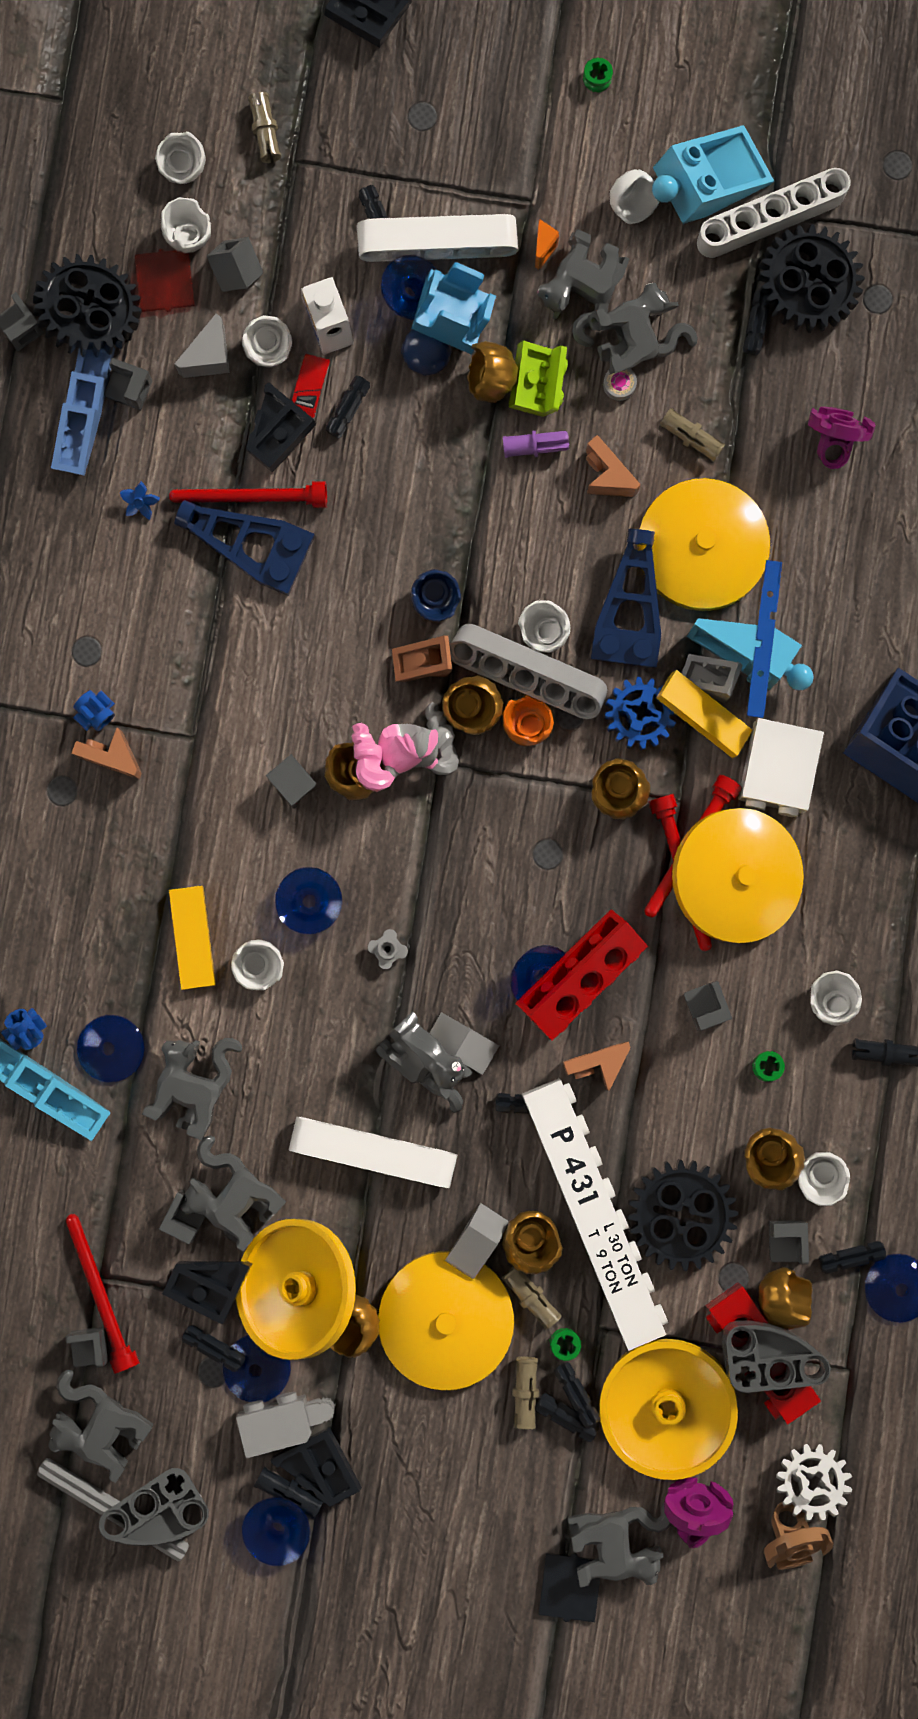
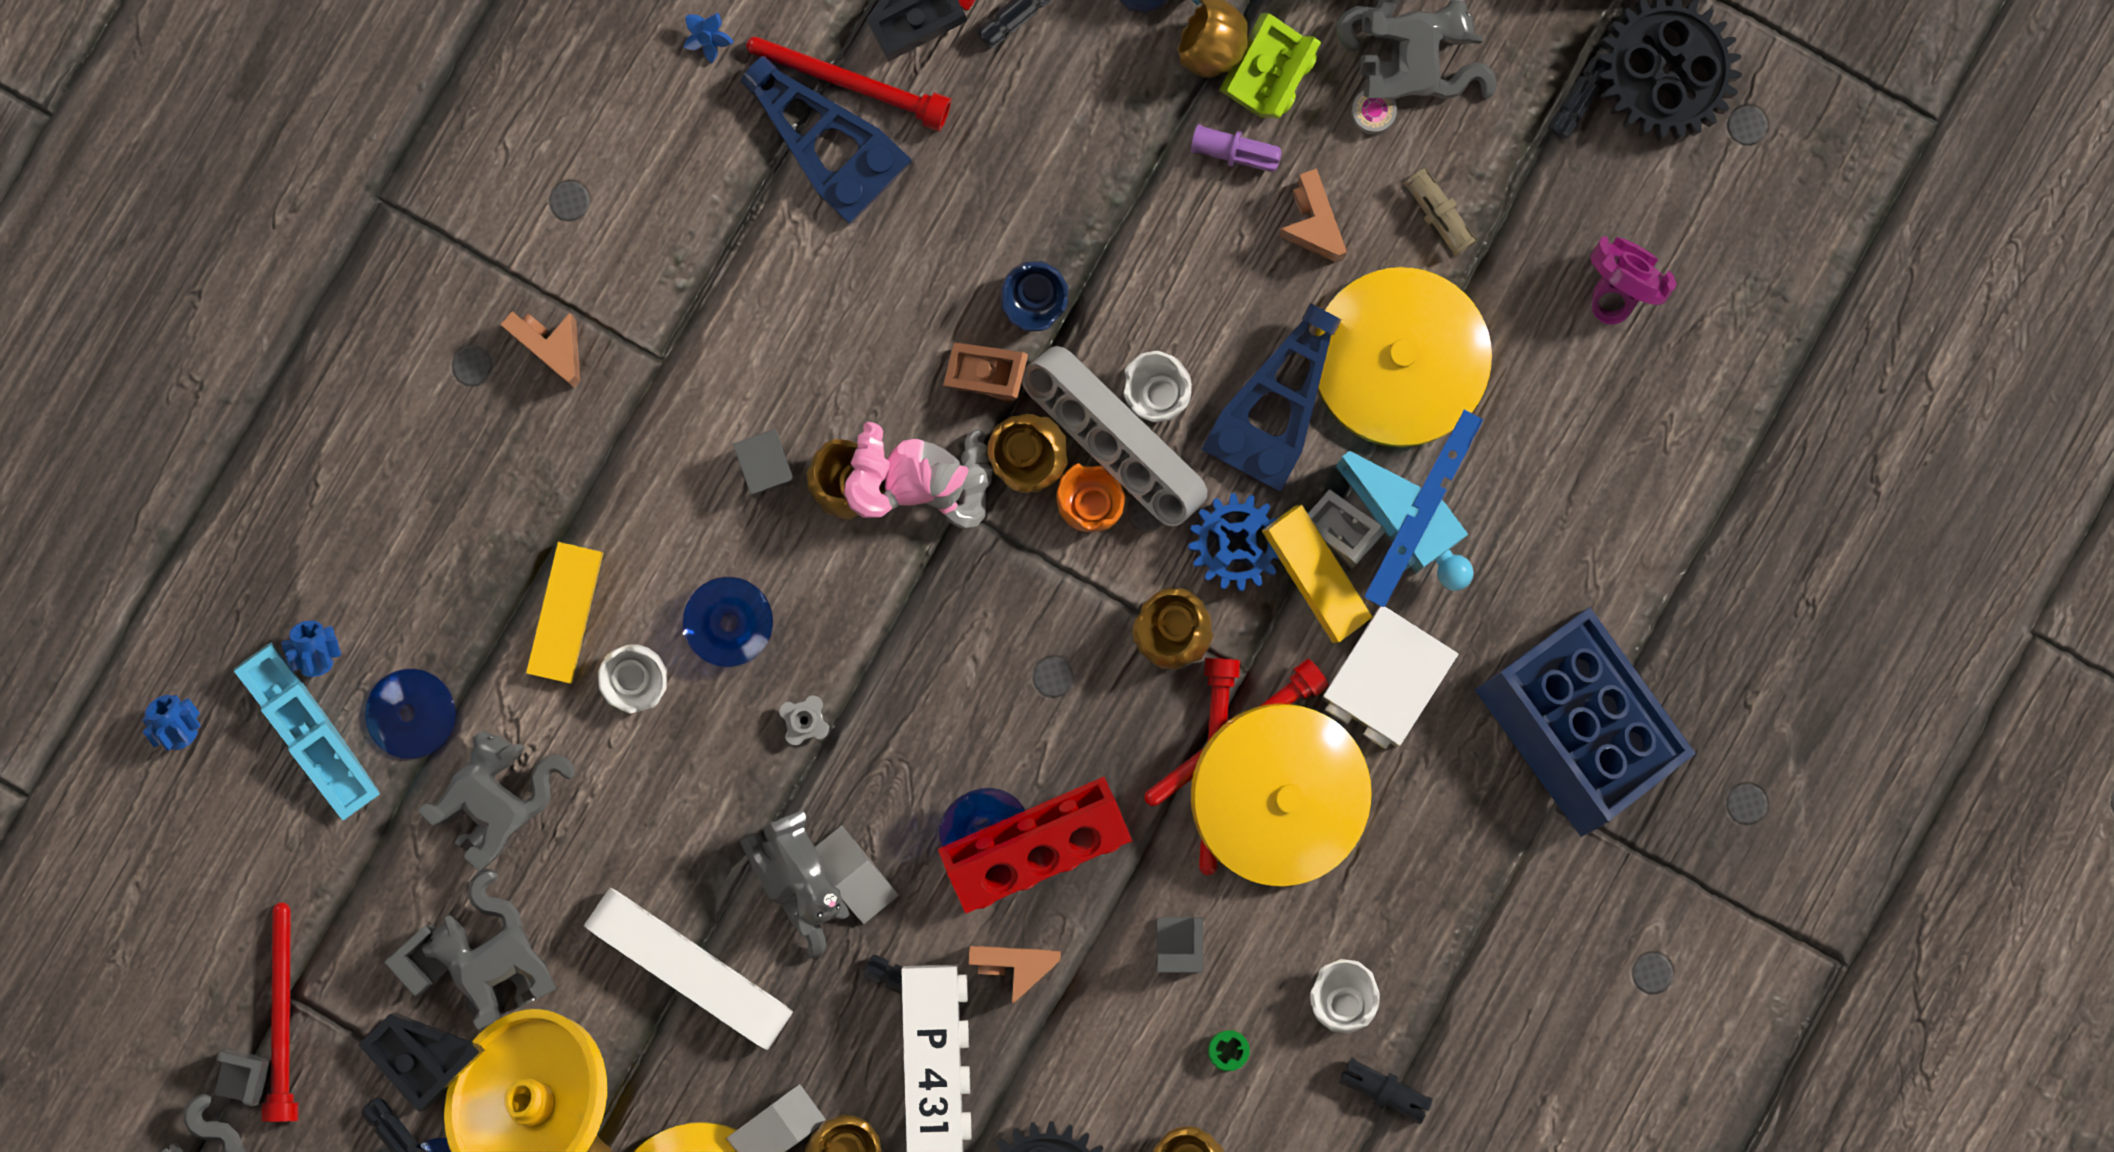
camera: 25 degrees right, 0 degrees up
(94, 710) = (549, 280): blue gear -> none

